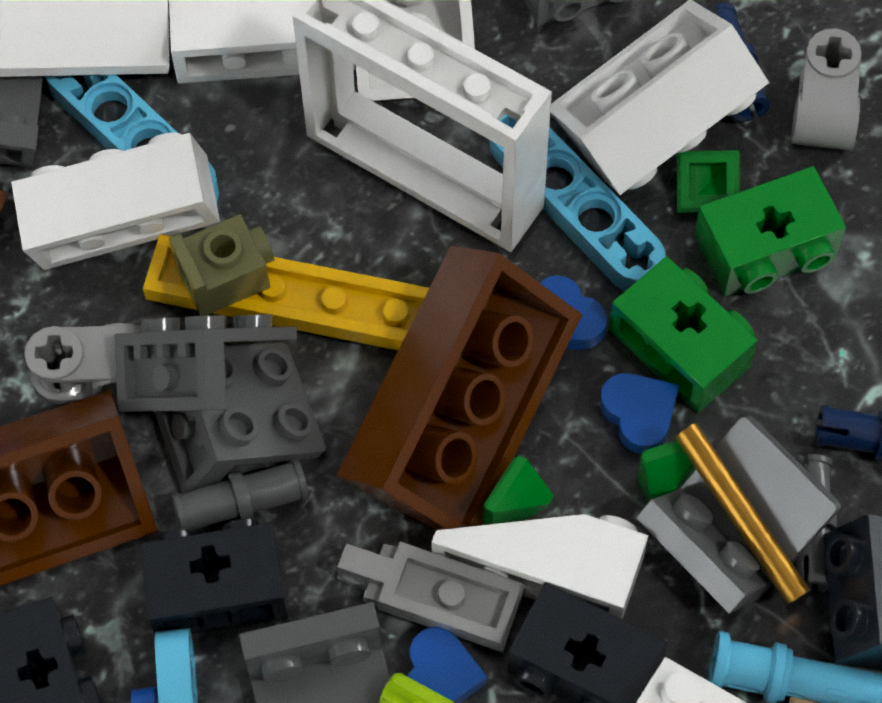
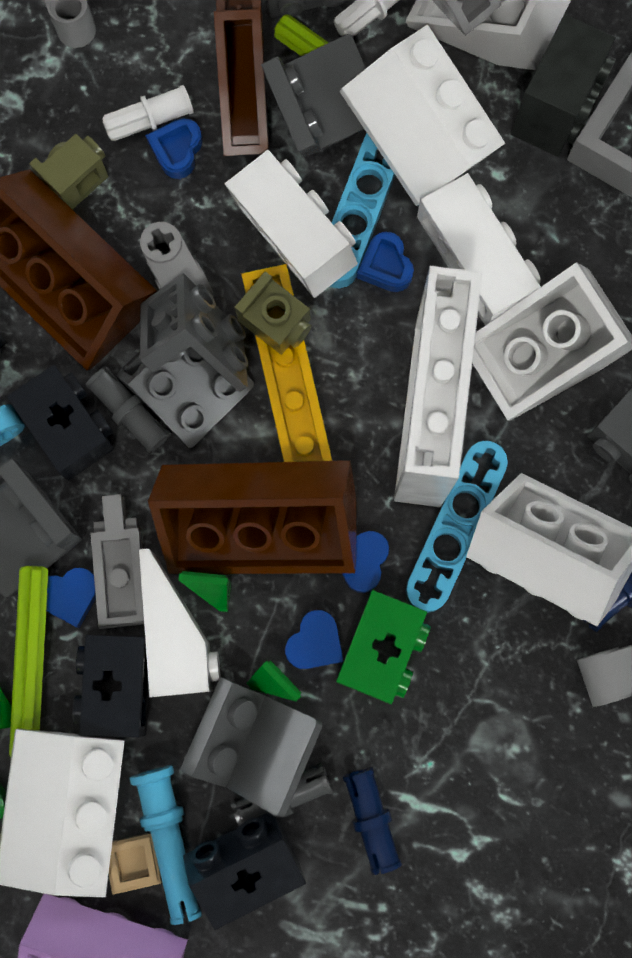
camera: 65 degrees right, 15 degrees up
(221, 134) = (385, 263): none -> blue tile
(706, 177) = (516, 614): green slope -> none
(742, 513) = (254, 748): pearl gold bar -> none
(769, 232) = (518, 682): green brick -> none

